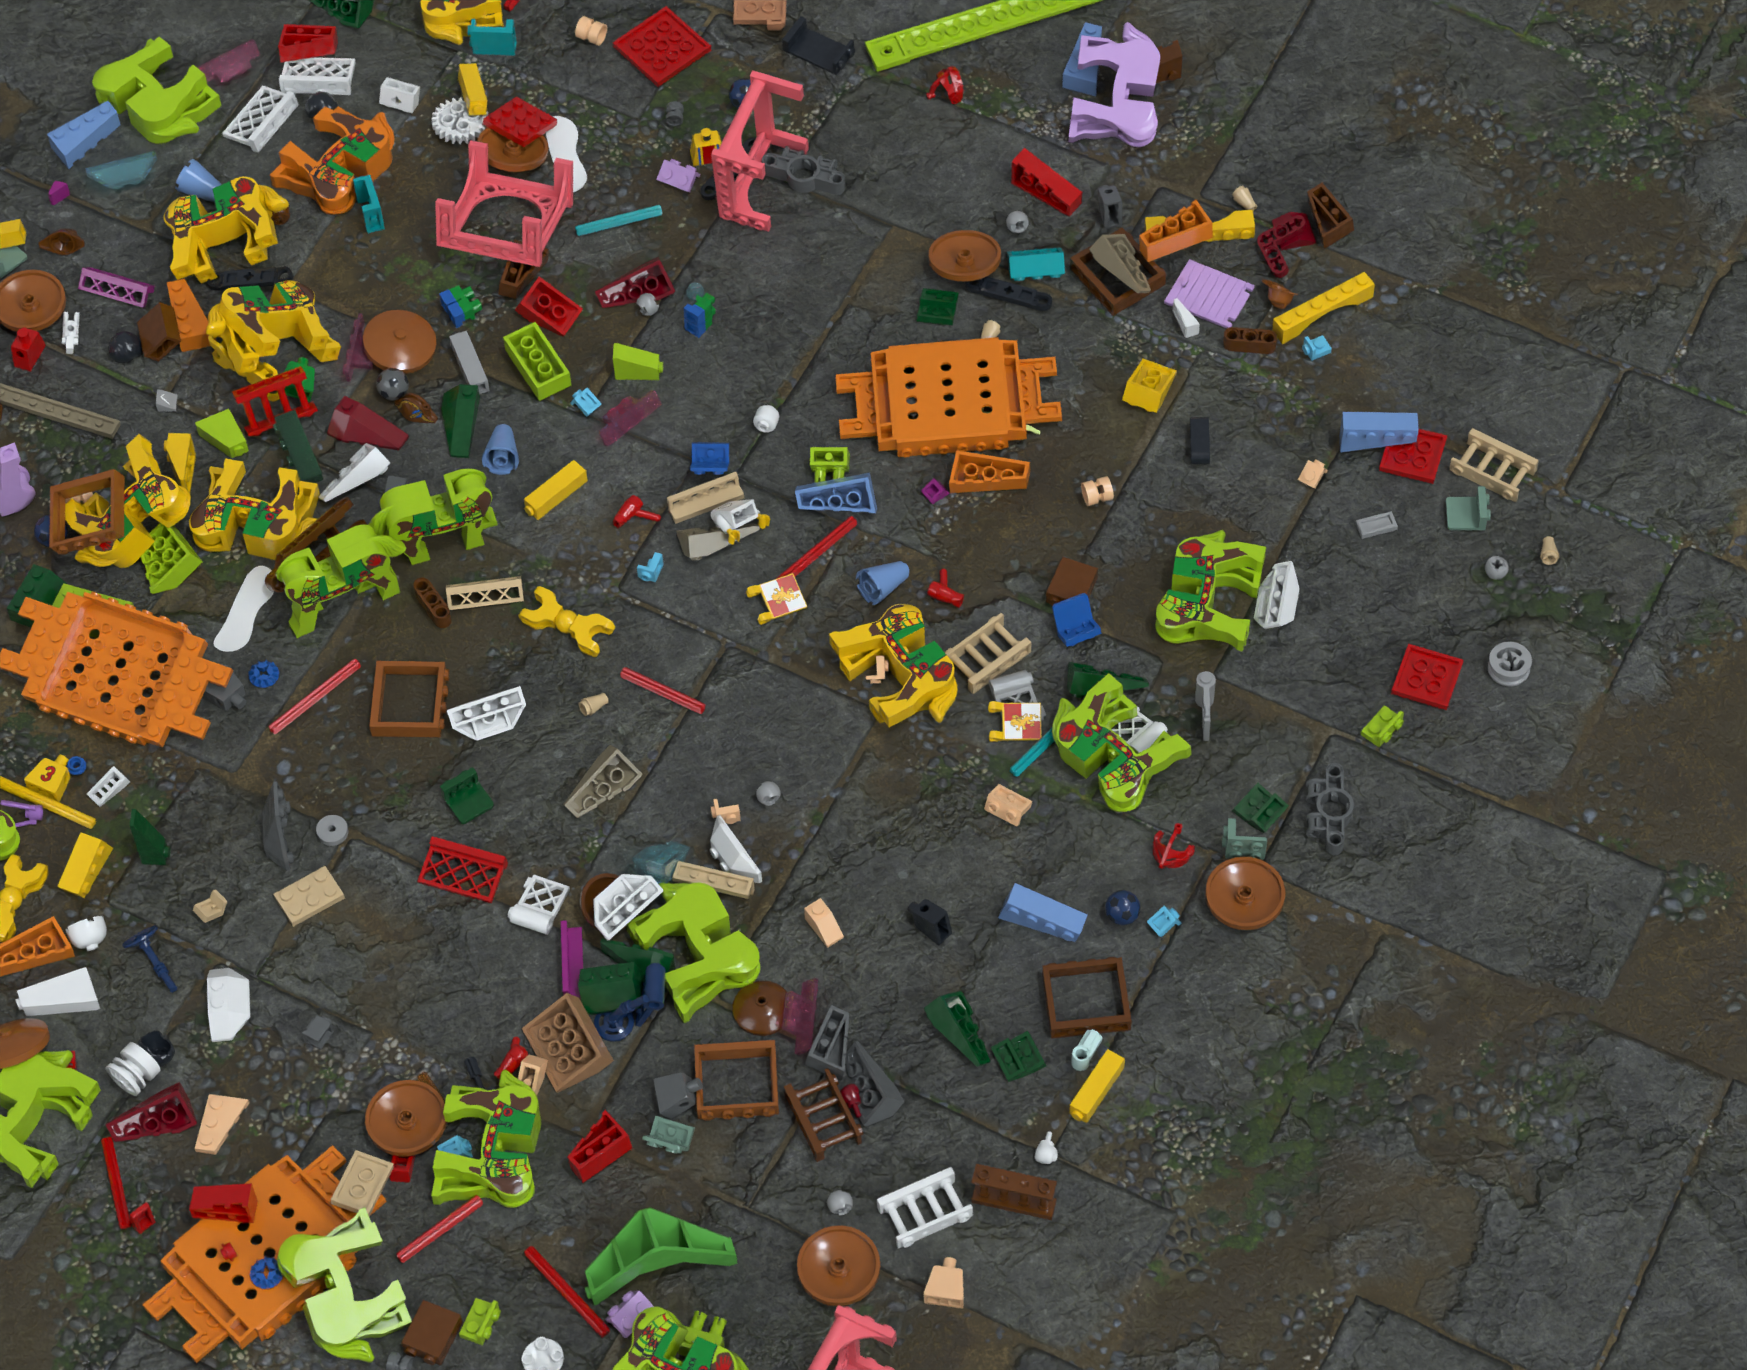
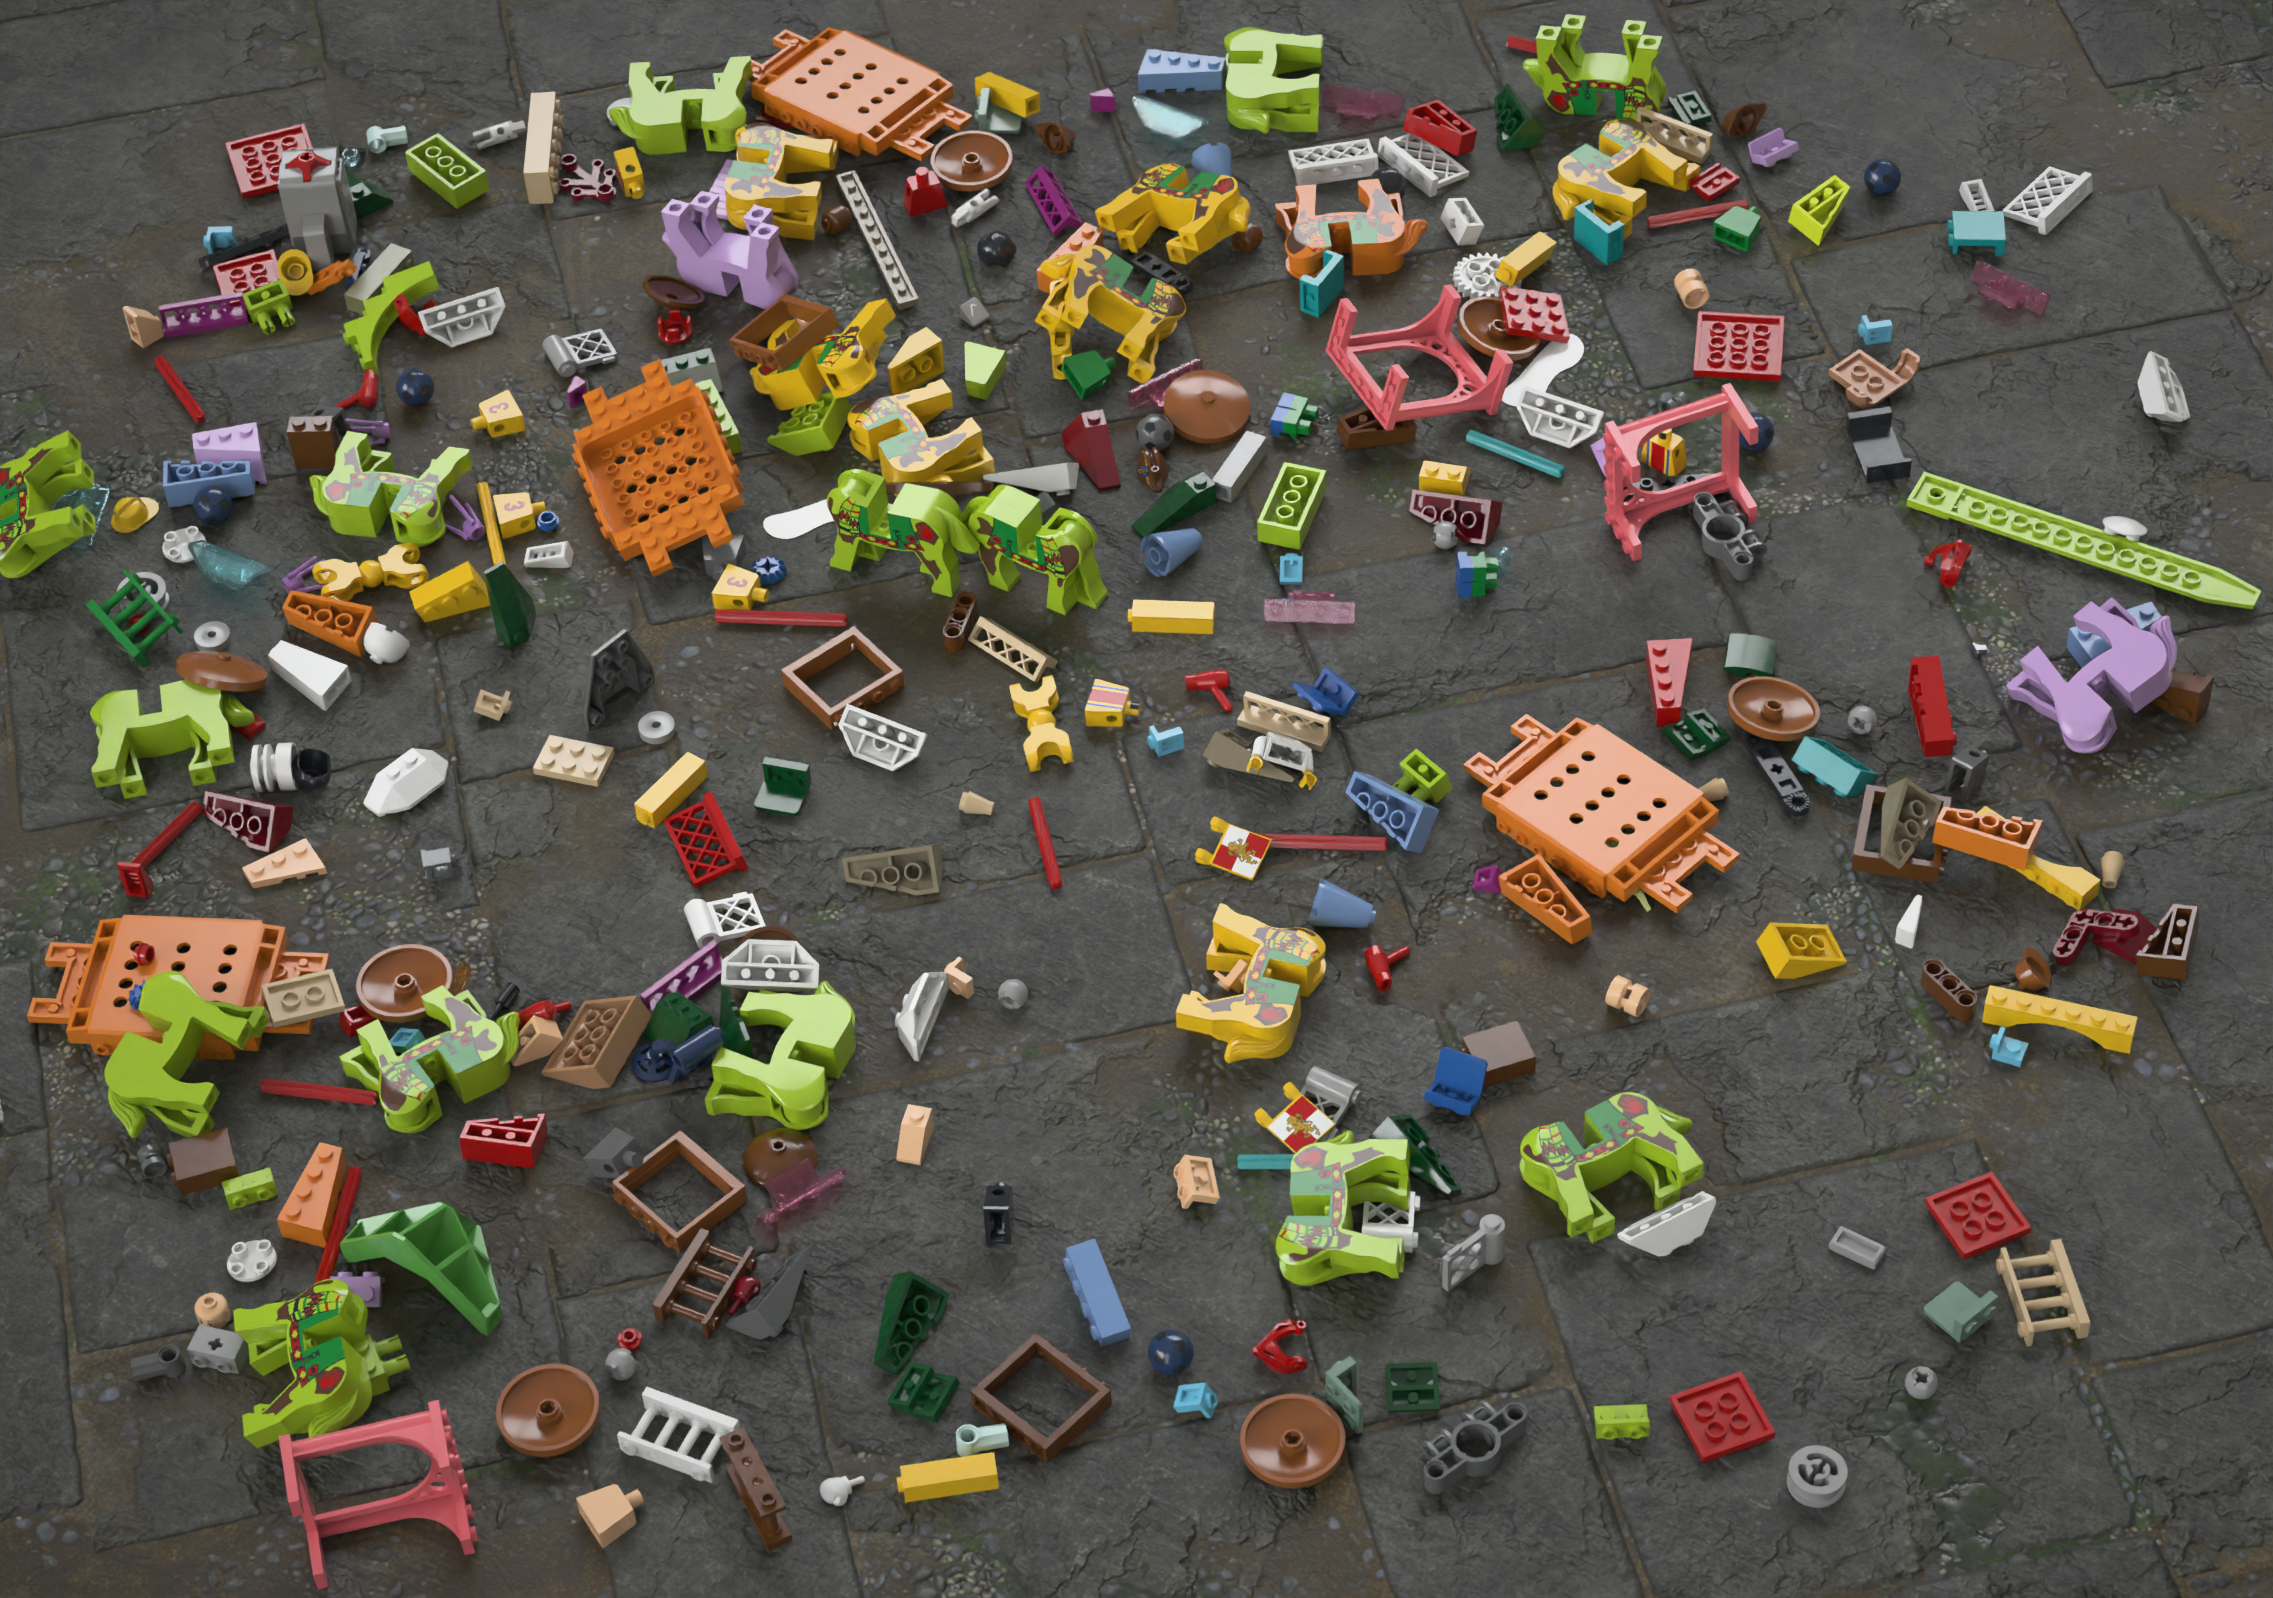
camera: 50 degrees right, 10 degrees down
(142, 940) = (413, 686): dark blue dish -> none
(158, 331) = (1031, 254): reddish brown brick -> none
(224, 1203) = (187, 916): red wedge -> none
(261, 390) = (1056, 355): red fence -> none
(266, 701) = (738, 589): none -> yellow torso
(297, 447) = (1017, 421): clear green wedge -> none
(399, 858) = (671, 790): none -> yellow brick
(535, 1290) = (314, 1199): none -> orange wedge
(548, 307) = (1360, 473): red slope -> none
(590, 575) = (1109, 705): none -> yellow torso
(600, 269) = (1444, 478): none -> yellow slope
(621, 177) = (1557, 418): none -> white wedge
(635, 363) = (1368, 570): lime slope -> none
(661, 860) = (854, 968): clear light blue wedge -> none
(671, 1134) = (567, 1186): sand green bracket -> none
(719, 880) = (873, 1020): tan fence -> none
(766, 418) = (1420, 702): white head -> none
(822, 1191) = (632, 1344): none -> red plate
(830, 1043) = (785, 1231): dark grey wedge -> none
(884, 286) = (1668, 674): none -> wedge
(908, 234) = (1750, 654): none -> slope
(990, 669) = (1348, 1064): tan fence -> none
(1199, 440) = (1783, 1034): black beam -> none
(1210, 293) = (1967, 923): lavender door -> none
(1312, 473) = (1854, 1150): light nougat bracket -> none
(1376, 430) = (1958, 1159): medium blue wedge -> none
(1549, 552) = (1994, 1415): tan cone -> none

